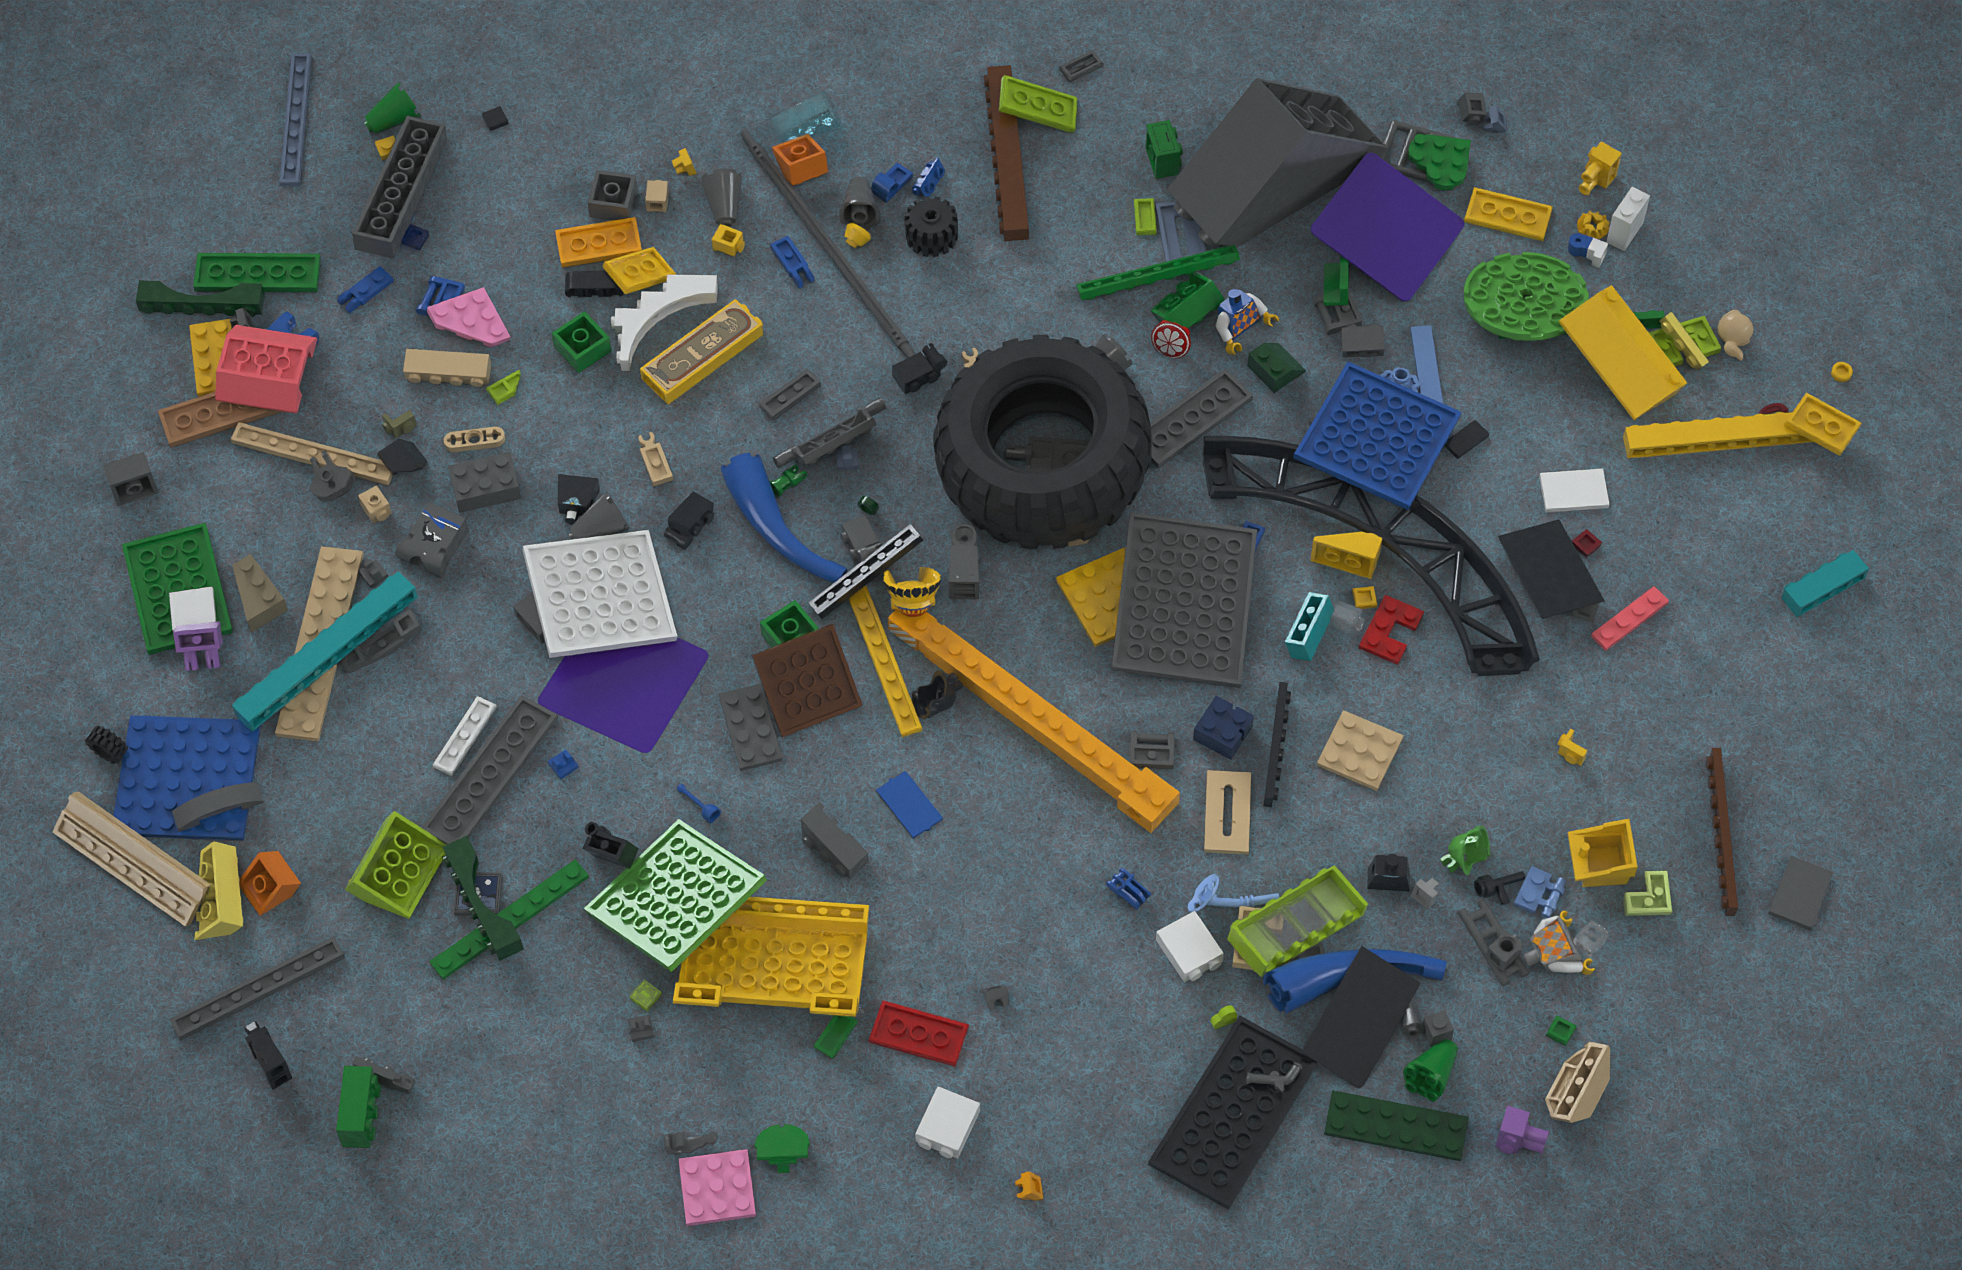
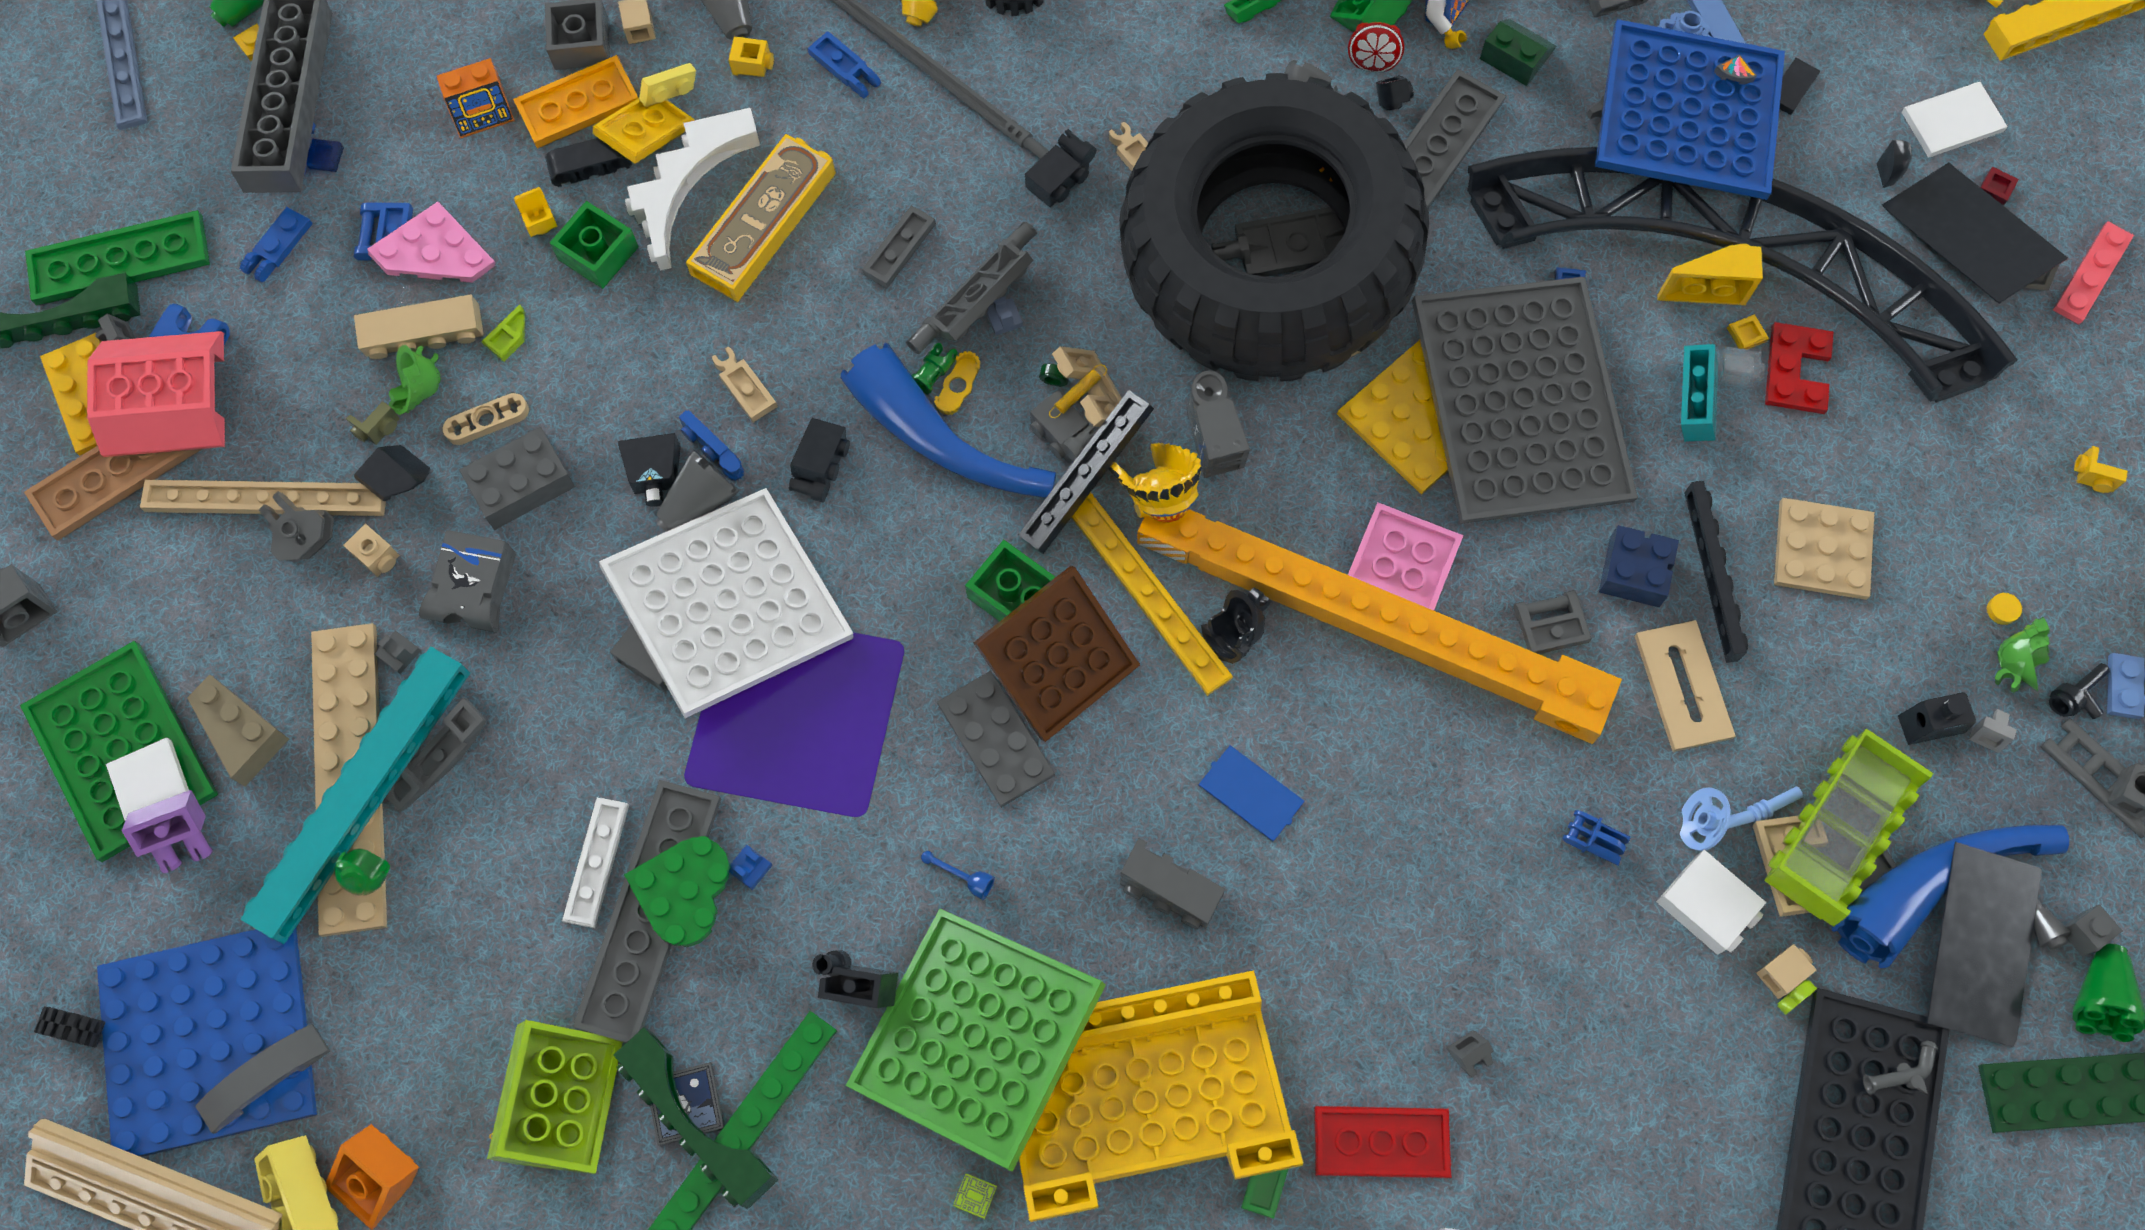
camera: 15 degrees left, 10 degrees up
(314, 699) = (361, 871): none -> green hair
(436, 401) = (418, 379): none -> bright green helmet
(514, 763) = (681, 888): none -> green plate
(529, 223) = (475, 98): none -> slope
(548, 310) = (535, 212): none -> yellow bracket
(620, 493) = (712, 447): none -> blue hinge
(664, 245) = (667, 84): none -> light yellow plate
(809, 487) = (967, 369): none -> yellow piece
(879, 517) = (1078, 391): none -> yellow piece
(895, 510) = (1102, 396): none -> tan plate
(1067, 681) = (1405, 555): none -> bright pink plate
(1173, 374) = (1394, 92): none -> black plate
(1223, 996) = (1787, 971): none -> tan brick
(1417, 416) = (1736, 70): none -> tile
(1469, 819) = (2004, 608): none -> yellow tile
(1515, 508) = (1894, 162): none -> black brick

